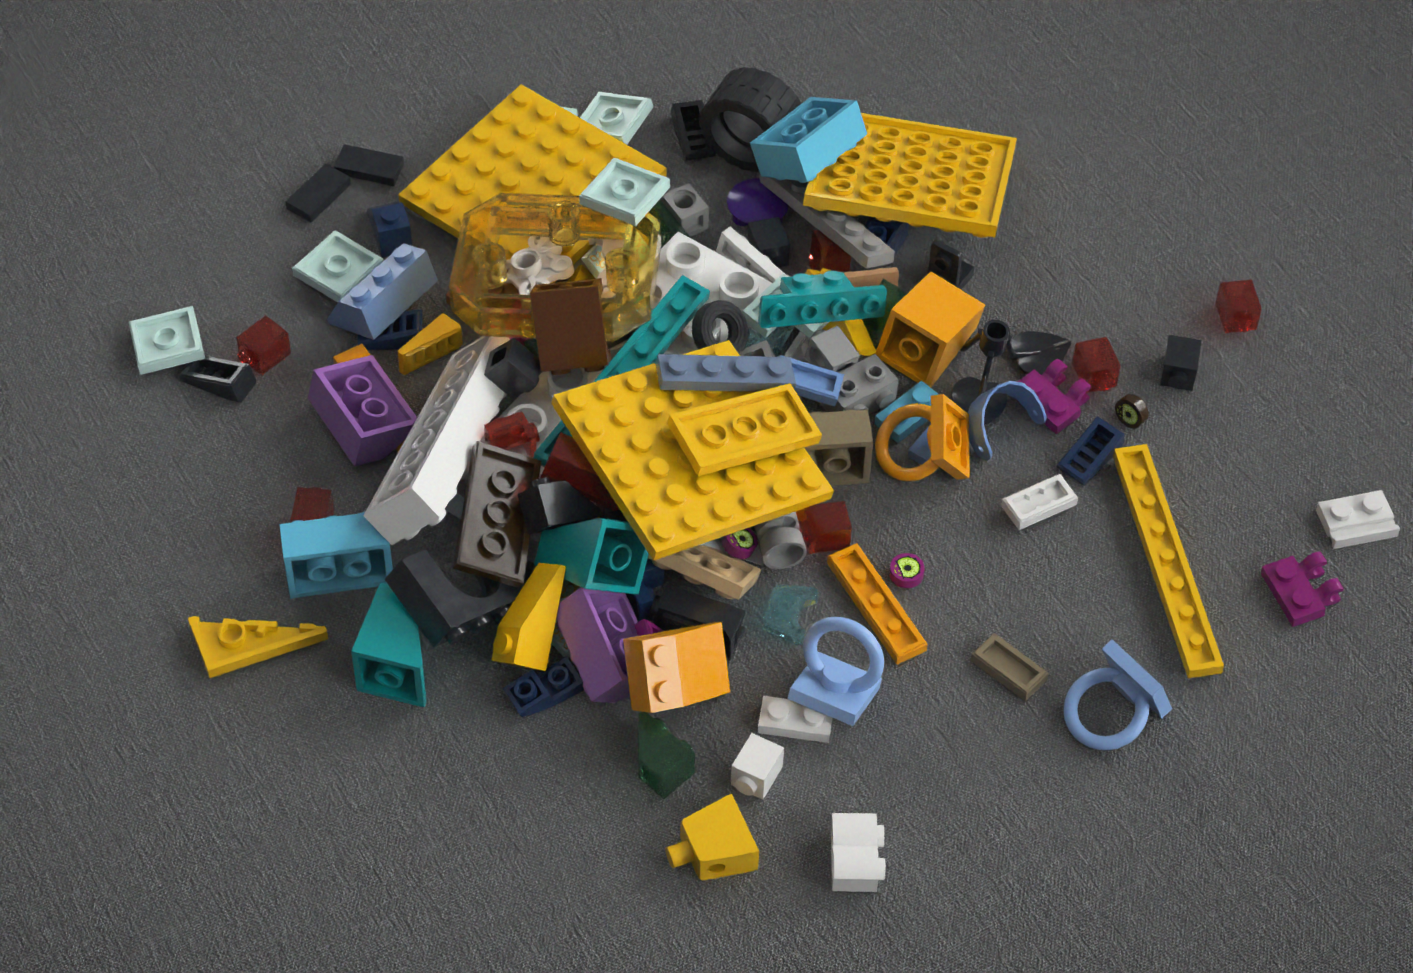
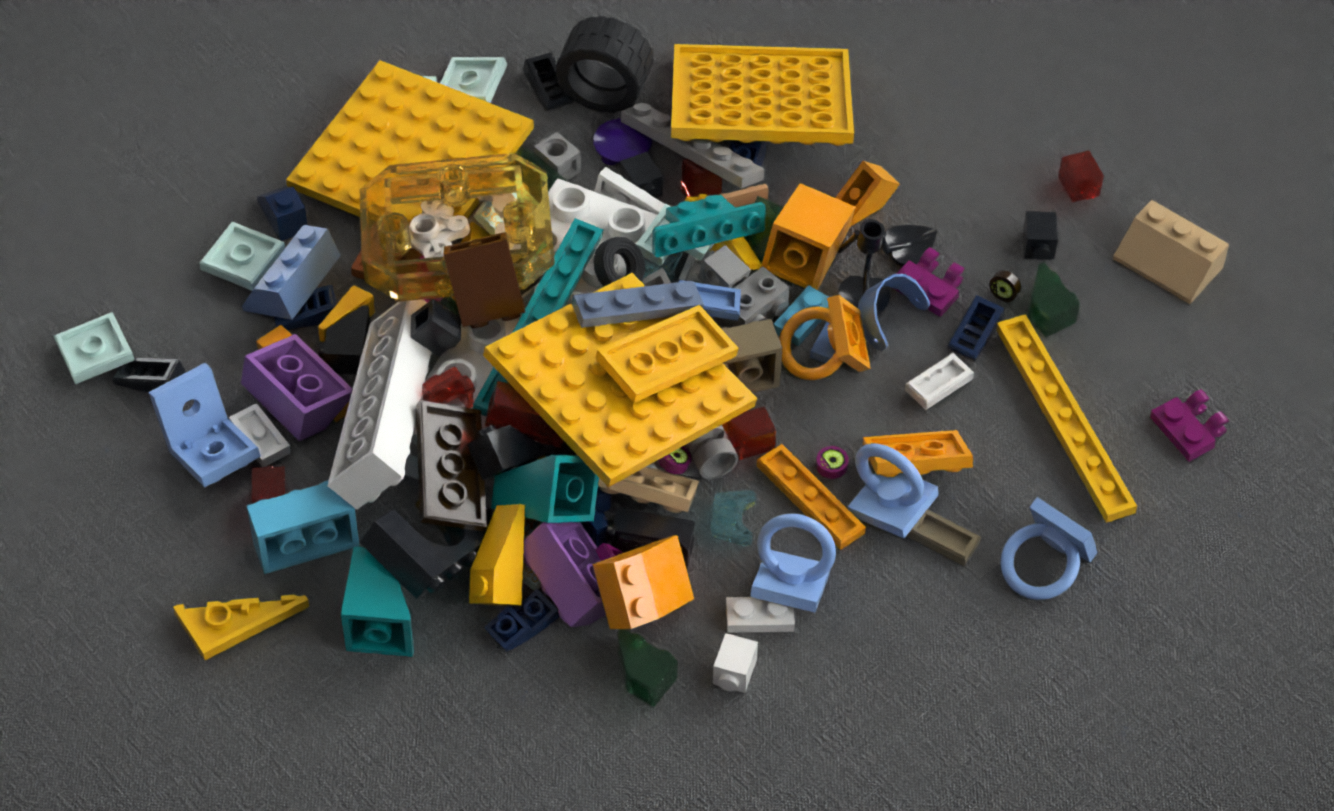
camera: 10 degrees left, 0 degrees up
(254, 440) = (202, 429): none -> light blue bracket
(263, 345) = (188, 339): clear red brick -> none
(315, 454) = (262, 433): none -> white plate
(318, 192) = (207, 188): black tile -> none
(369, 165) = (249, 155): black tile -> none
(423, 369) = (346, 342): none -> black slope
(624, 191) = (507, 147): light aqua plate -> none
(715, 842) = (712, 738): yellow torso -> none
(809, 139) = (664, 75): medium azure brick -> none
(855, 852) = (841, 728): white brick -> none
(948, 264) = (812, 173): black bracket -> none
(962, 616) = (891, 502): none -> light blue tile
(998, 574) = (925, 451): none -> light orange plate
(1004, 290) = (867, 190): none -> light orange slope
(1096, 364) = (965, 247): clear red brick -> none
(1177, 436) = (1052, 303): none -> clear green slope
(1320, 400) = (1171, 252): none -> tan slope
(1357, 519) = (1226, 355): white plate -> none

